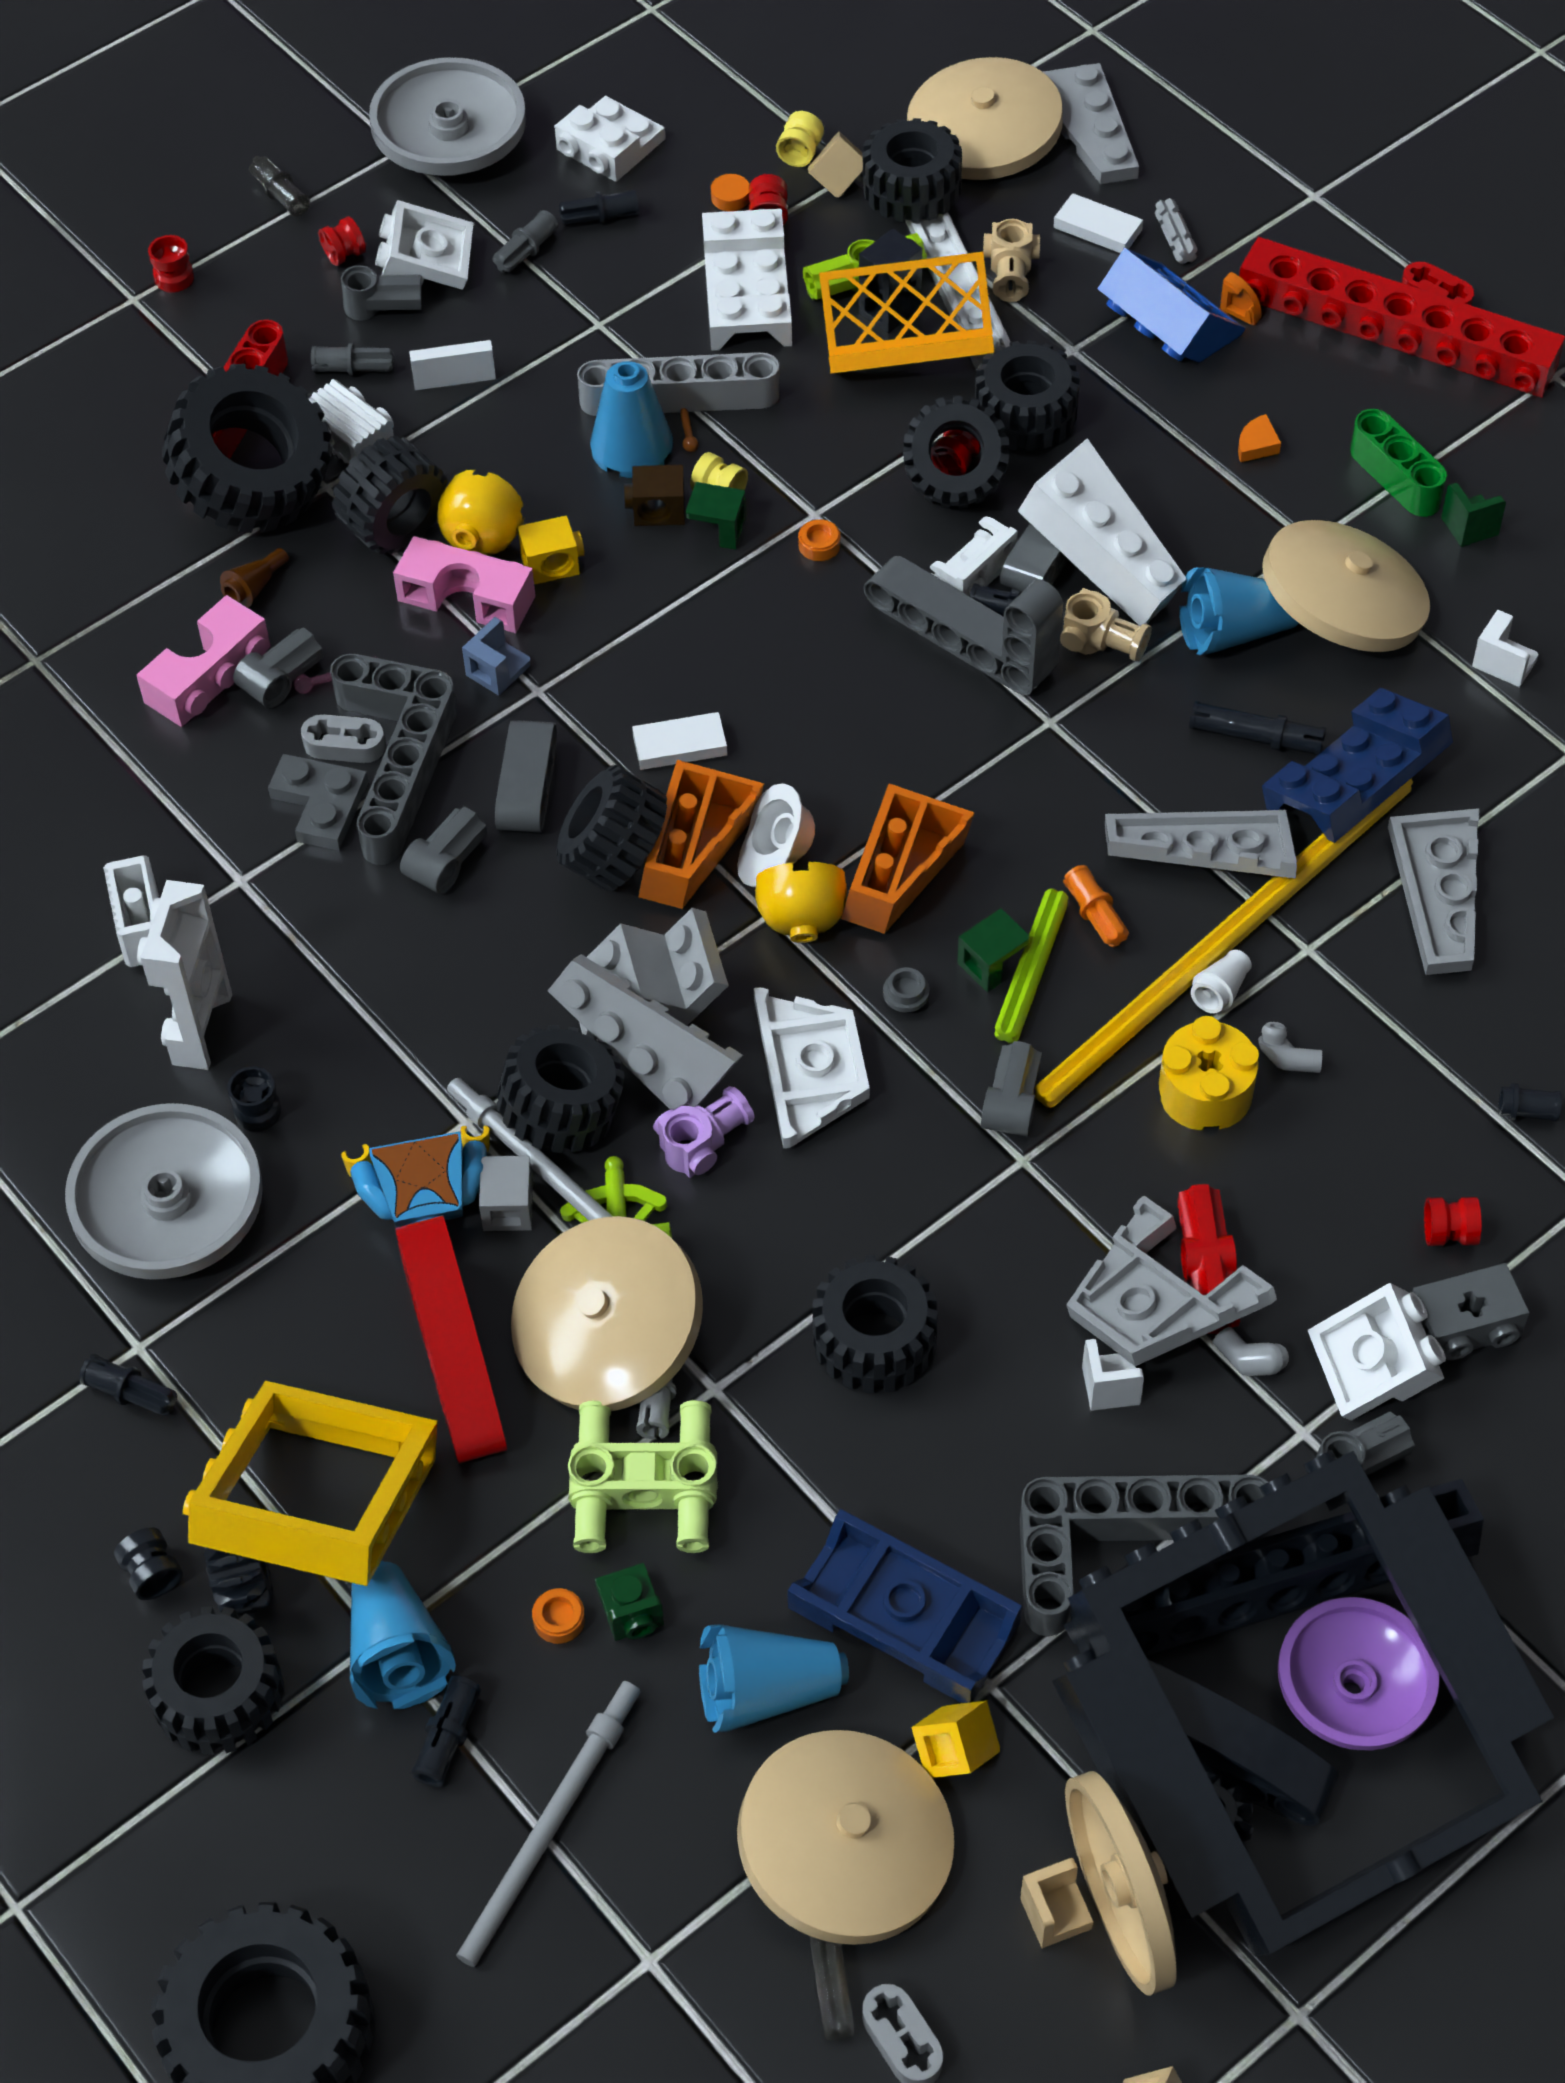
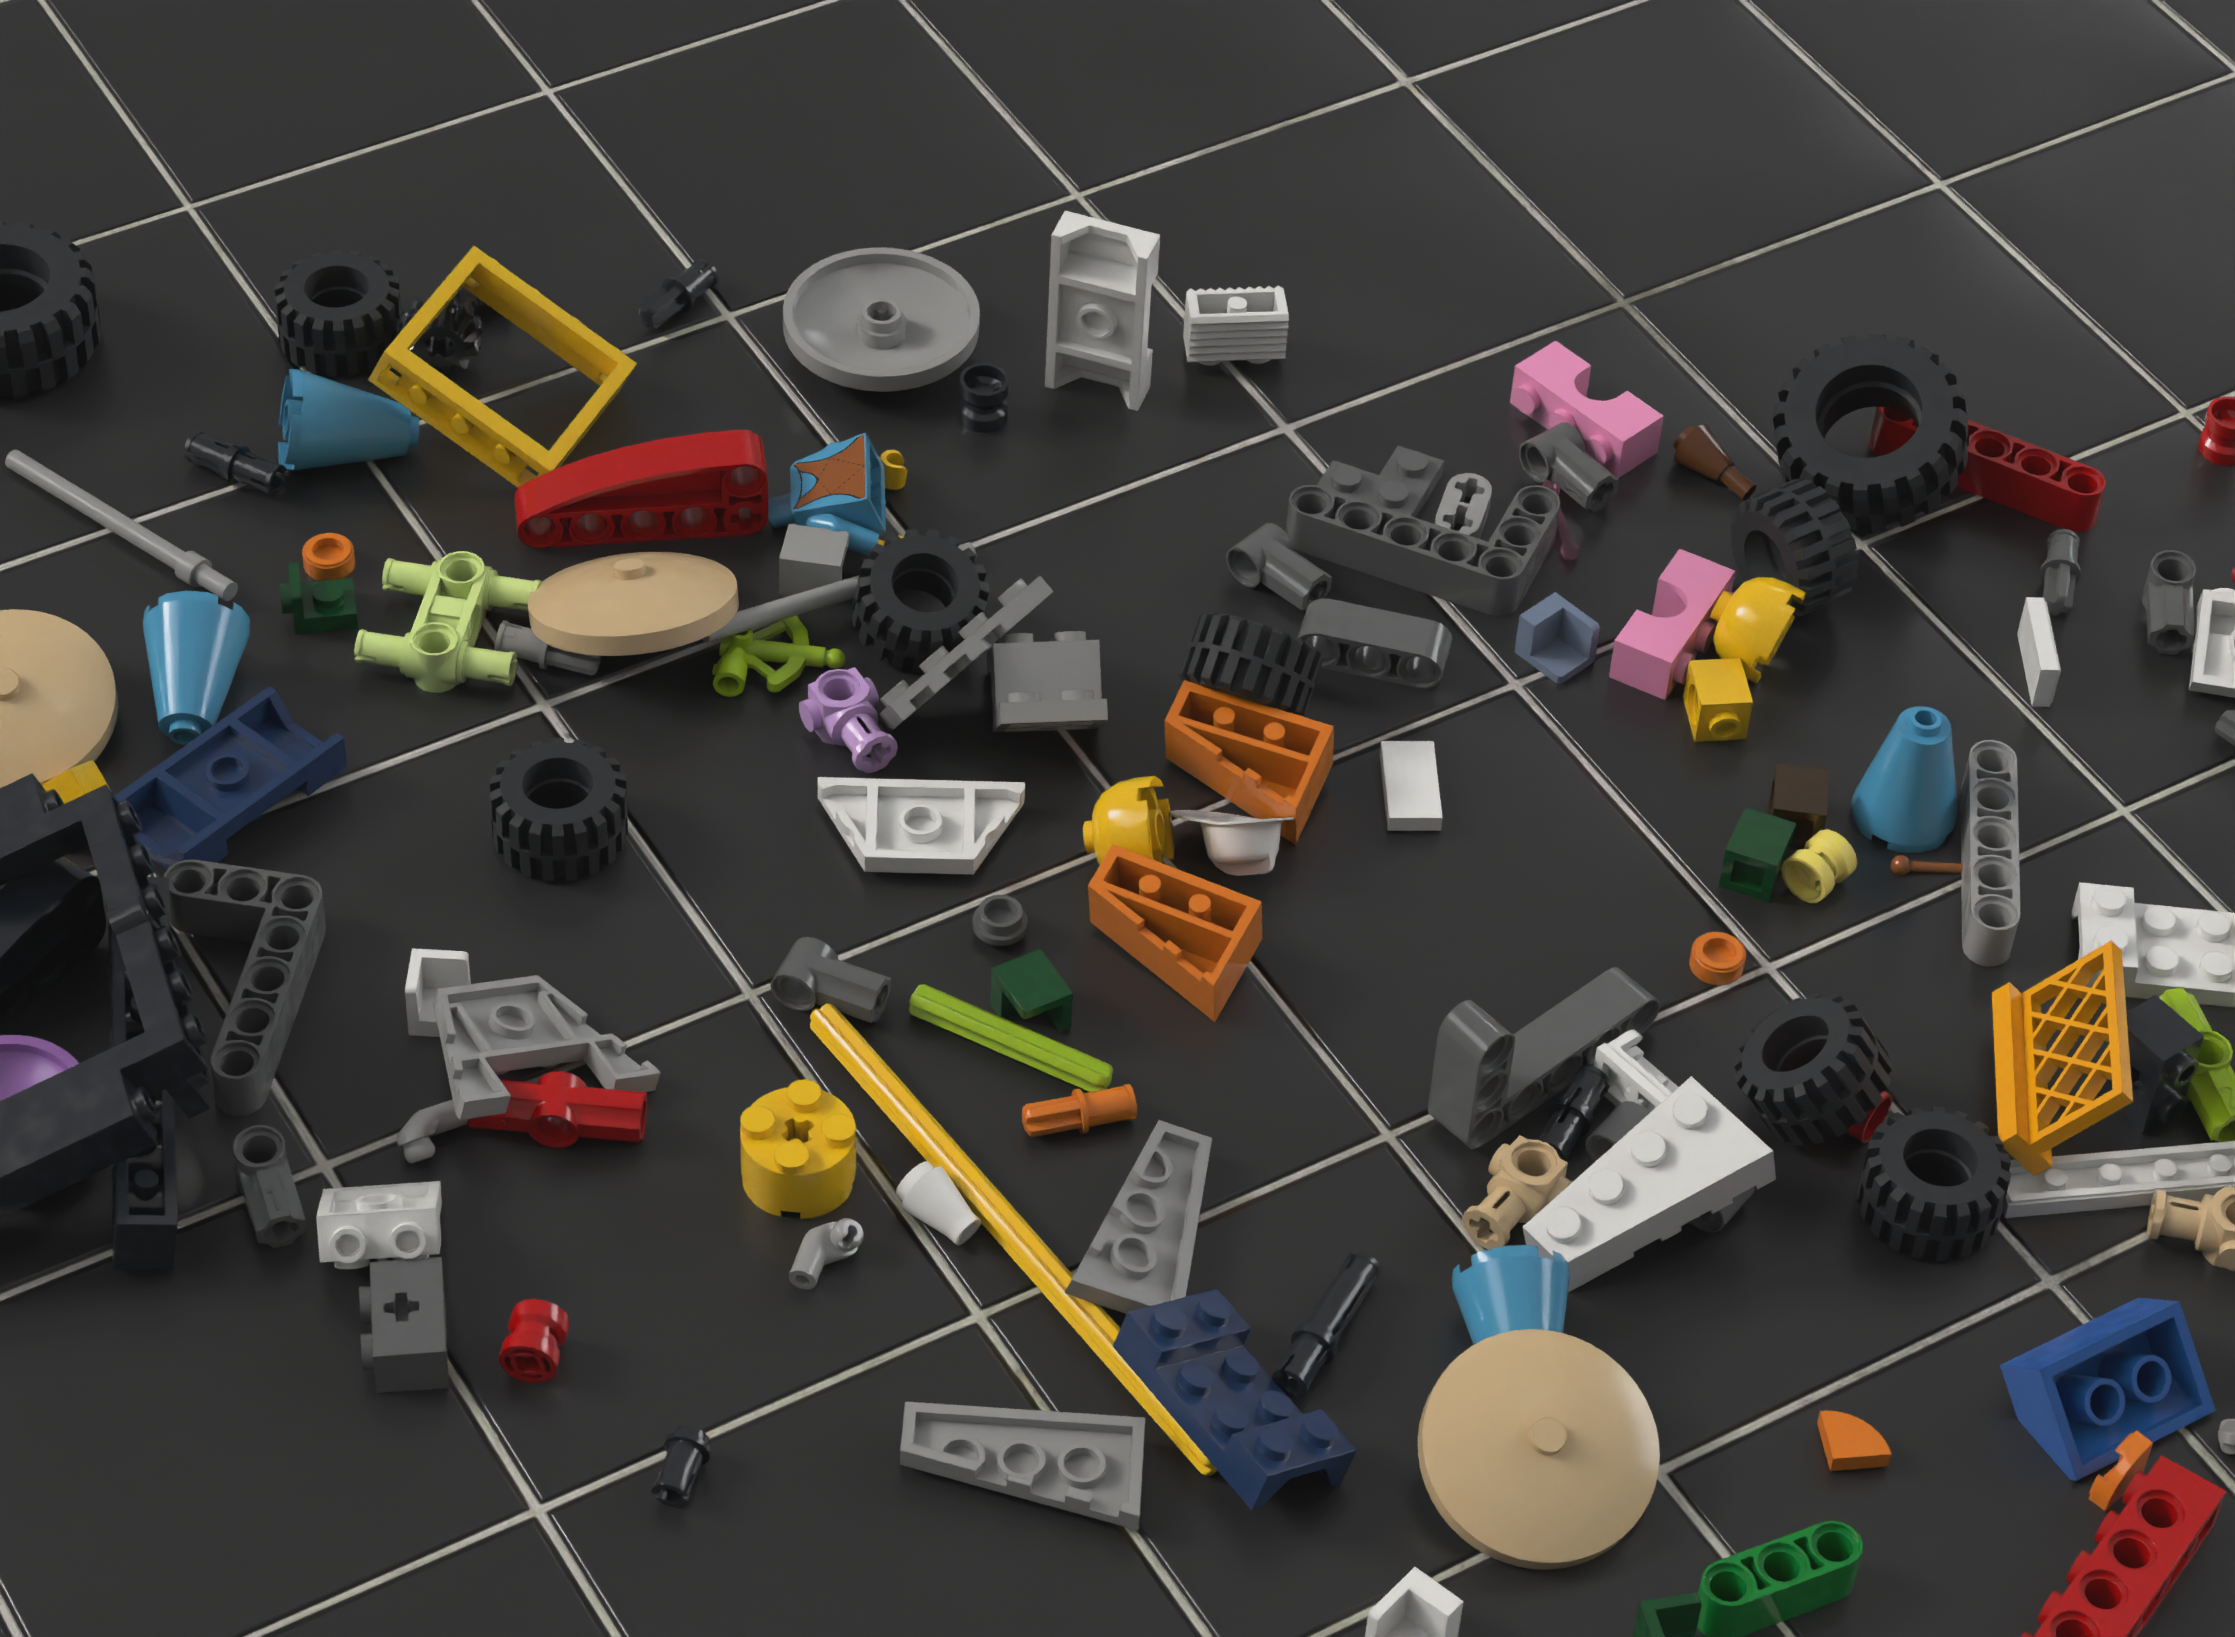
camera: 95 degrees right, 10 degrees down
(351, 419) = (1943, 553): white brick -> none

